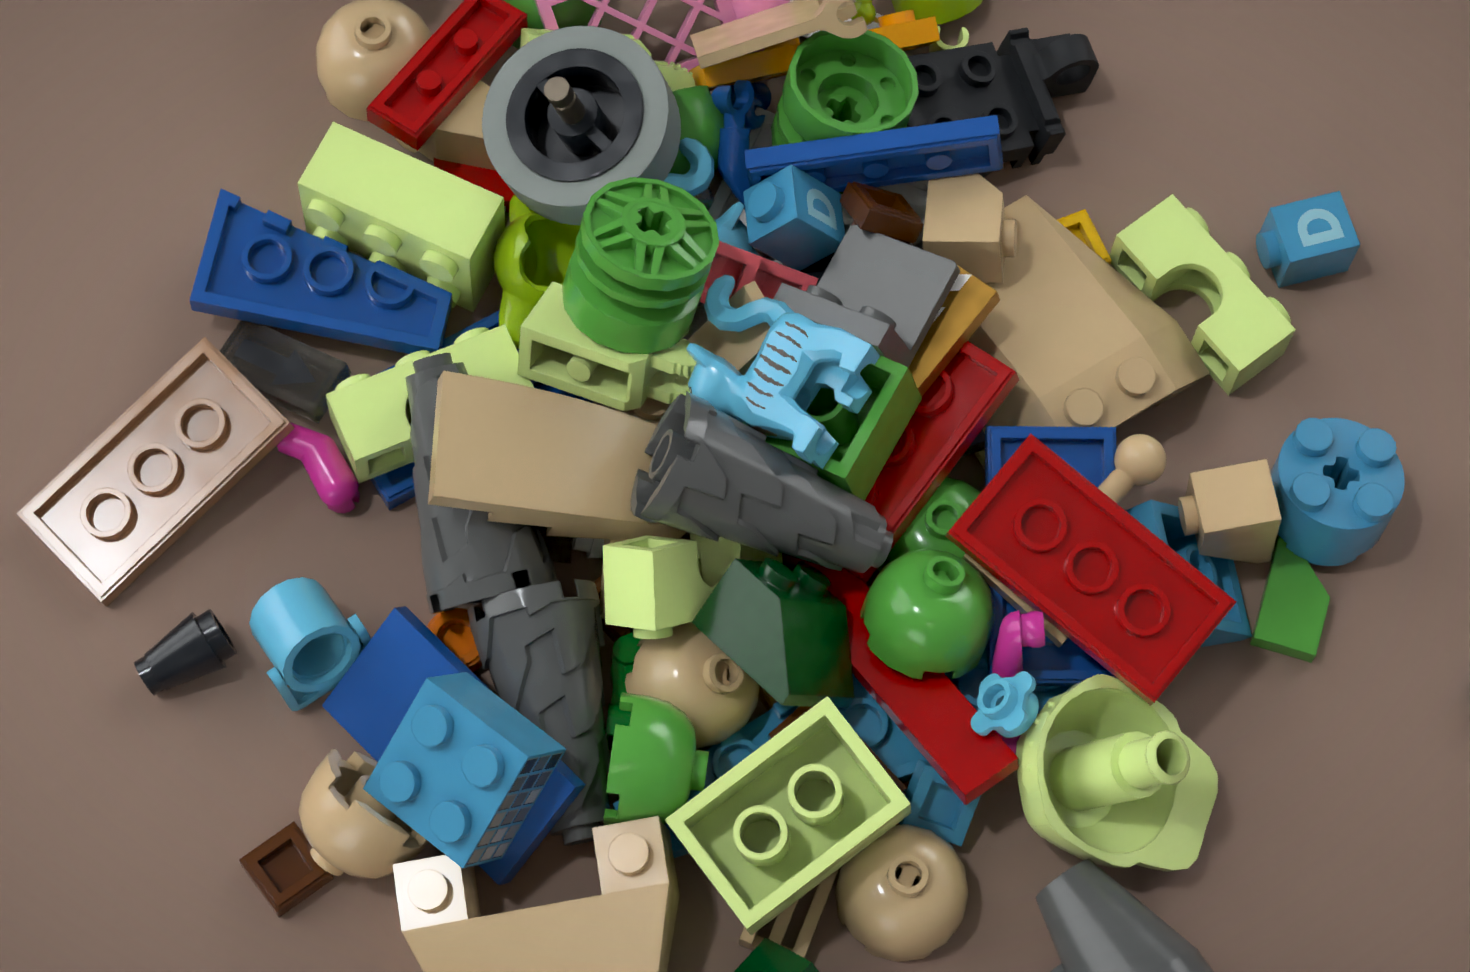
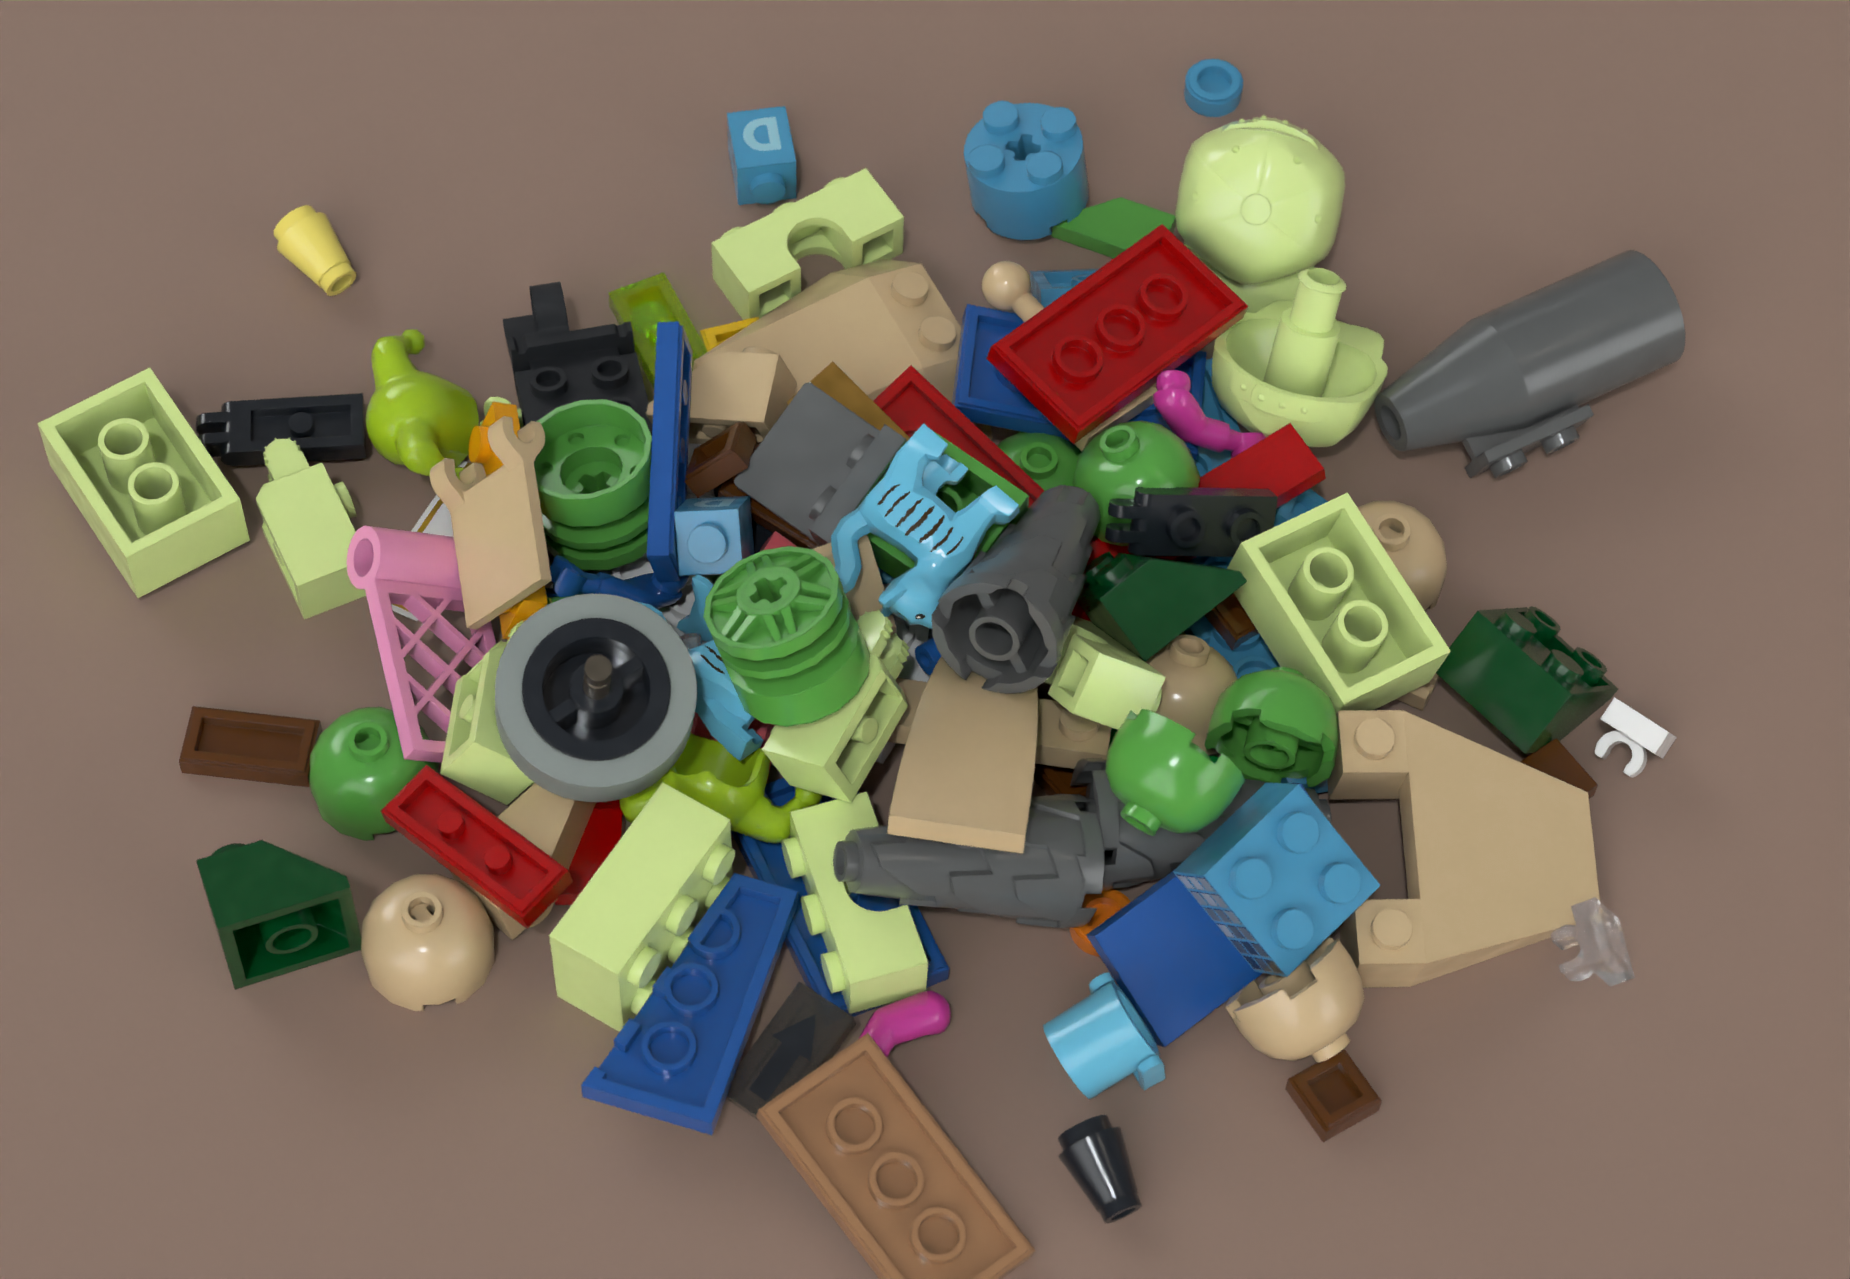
camera: 80 degrees left, 10 degrees down
(537, 638) = (1167, 776): none -> bright green cylinder
(878, 666) = (1191, 520): none -> black hinge
(1006, 705) = (1257, 415): medium azure plate -> none
(1075, 169) = (645, 305): none -> clear neon green plate
(1232, 512) = (1051, 230): tan slope -> none
(1304, 719) = (1260, 206): none -> yellowish green piece

